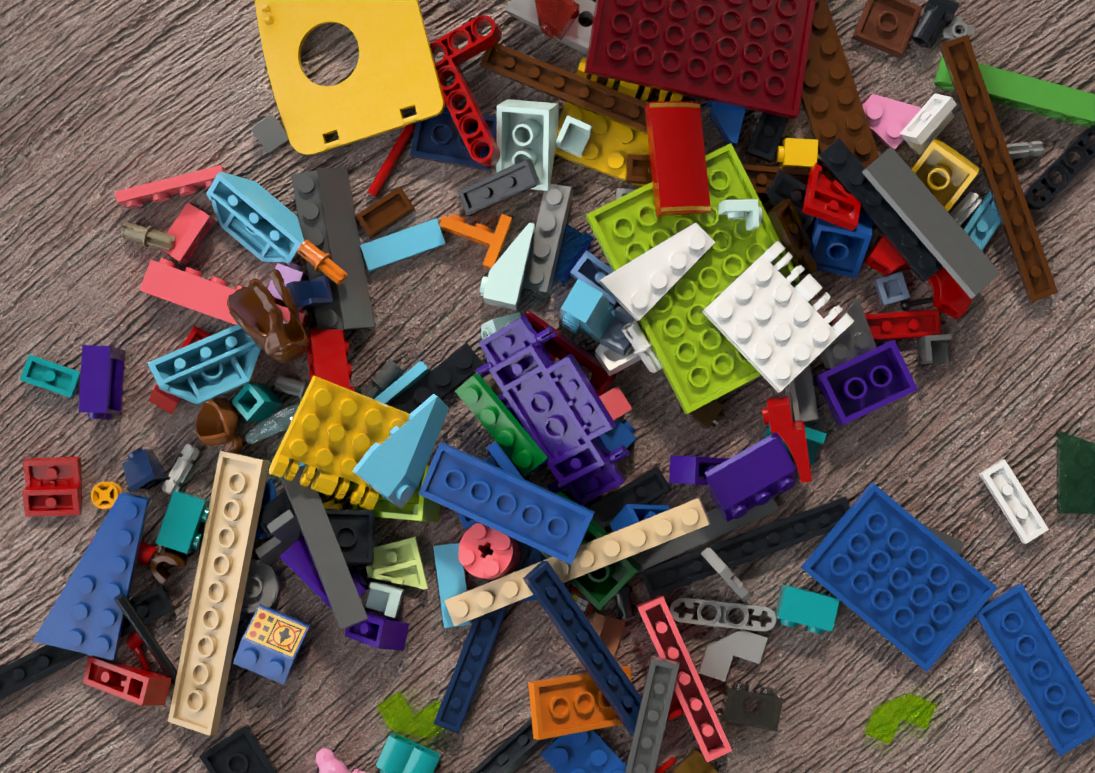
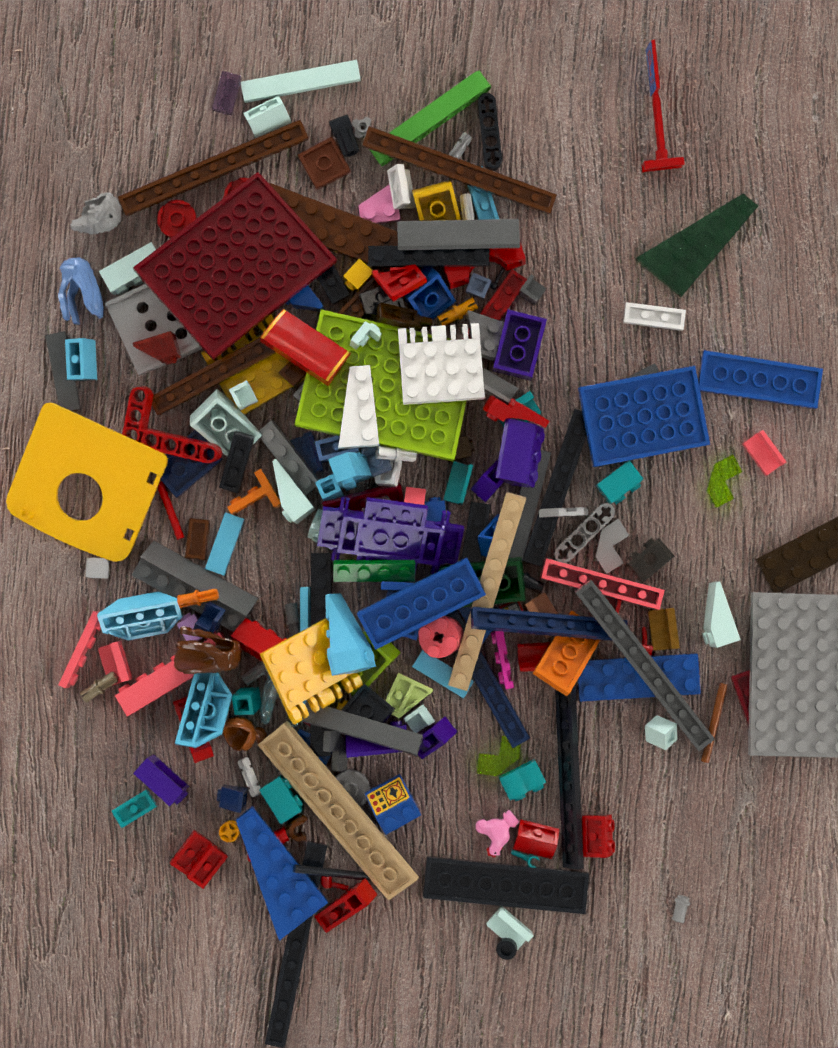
camera: 45 degrees left, 0 degrees up
(518, 634) = (501, 658): none -> dark pink wing
(547, 663) = (530, 655): none -> red panel
(549, 306) = (329, 488): none -> medium azure brick
(666, 437) = (458, 483): none -> teal panel
(846, 289) = (457, 312): none -> light orange pin
(965, 737) = (764, 452): none -> coral panel

